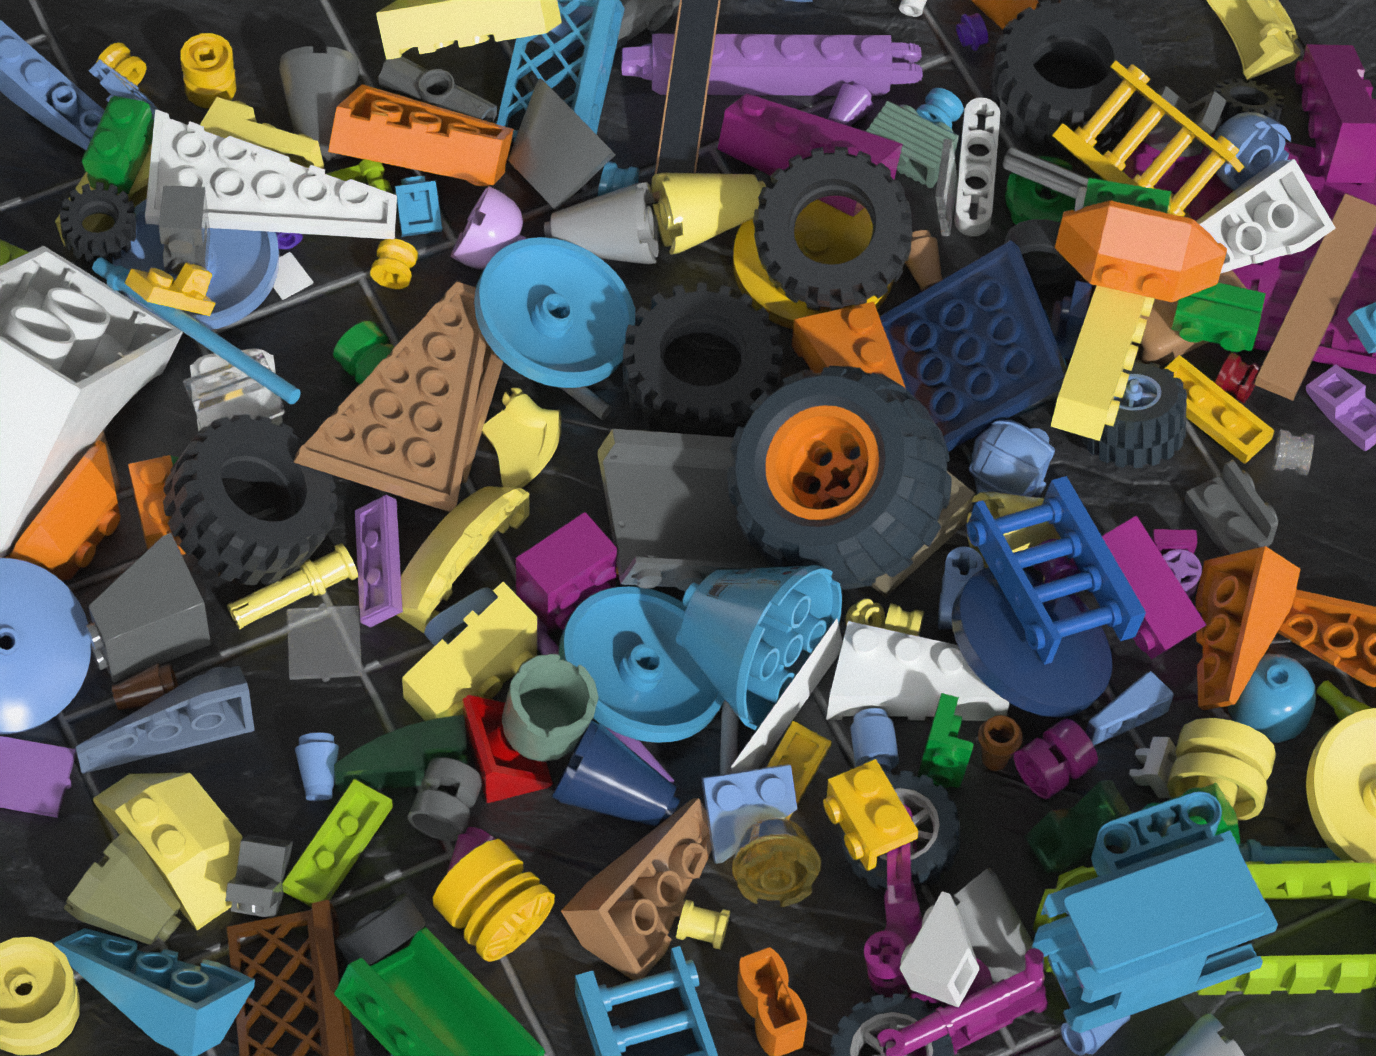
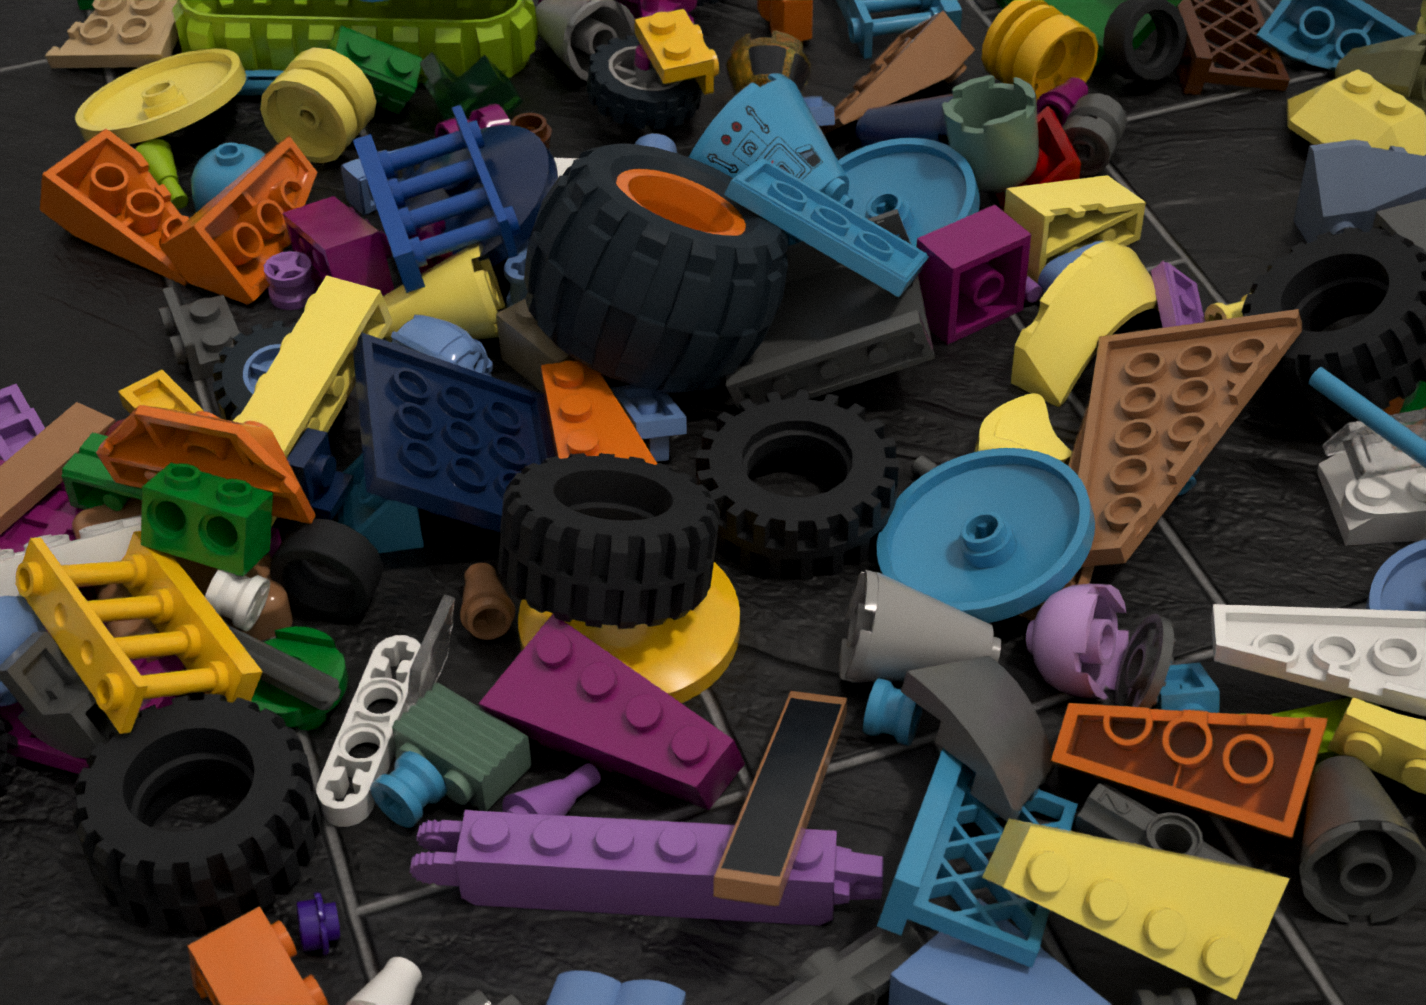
camera: 170 degrees left, 15 degrees down
(259, 876) = (1267, 81): dark grey brick -> none
(316, 764) = (1224, 175): medium blue cone -> none
(324, 642) = (1225, 273): clear piece -> none
(337, 844) = (1192, 121): lime plate -> none
(362, 350) = (1223, 508): green wheel -> none
(394, 263) = (1194, 628): yellow wheel -> none
(403, 754) = (1148, 166): clear green slope -> none
(445, 204) = (1145, 663): none -> dark grey wheel
(696, 510) = (827, 225): none -> dark azure tile
(702, 205) = (775, 646): light yellow cone -> none
(703, 924) = (840, 59): light yellow bush -> none
(945, 754) = (586, 118): green bracket -> none
(1157, 765) = (378, 128): white tile -> none
(1171, 540) = (283, 297): magenta tile -> none
(1293, 452) = (104, 375): clear wheel -> none

